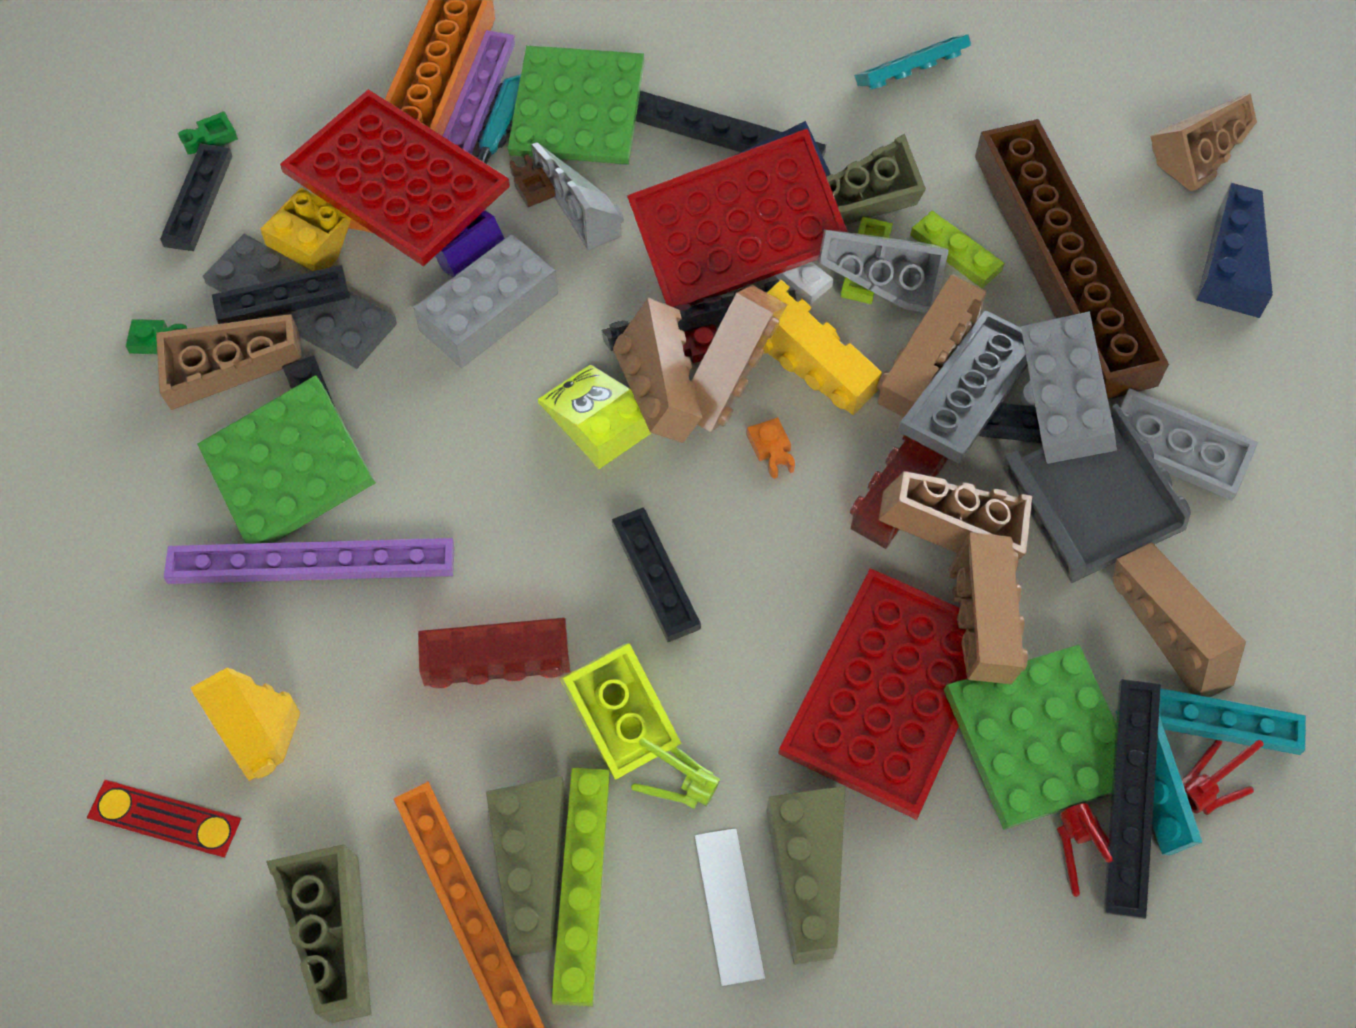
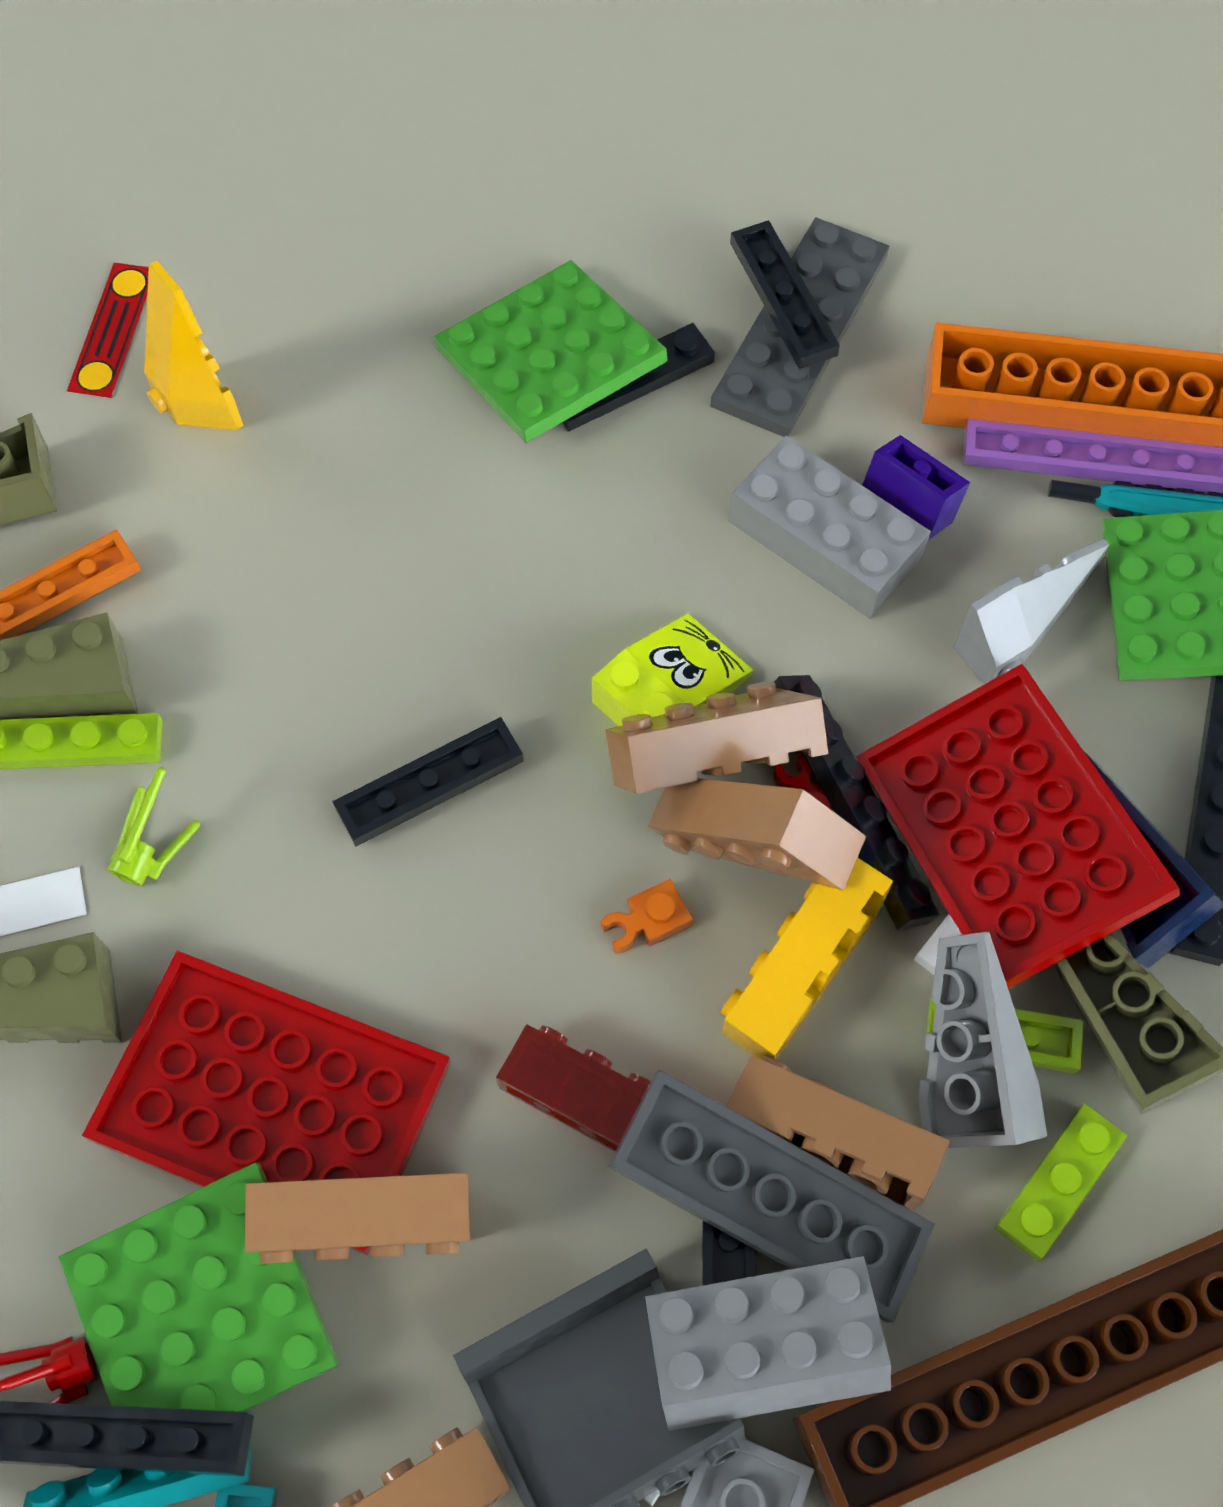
camera: 85 degrees right, 5 degrees up
(143, 332) = (721, 190): green plate -> none
(196, 197) = (937, 187): black plate -> none
(211, 131) = (1044, 183): green plate -> none
(222, 356) = (686, 252): medium nougat wedge -> none
(307, 230) = (896, 306): yellow slope -> none
(309, 561) = (422, 407): medium lavender plate -> none
(395, 176) = (984, 373): red plate -> none
(493, 652) = (305, 608): clear red brick -> none
(530, 183) = (1045, 550): reddish brown plate -> none
(619, 709) = (232, 753): neon yellow slope -> none
(949, 512) = (520, 1197): medium nougat wedge -> none

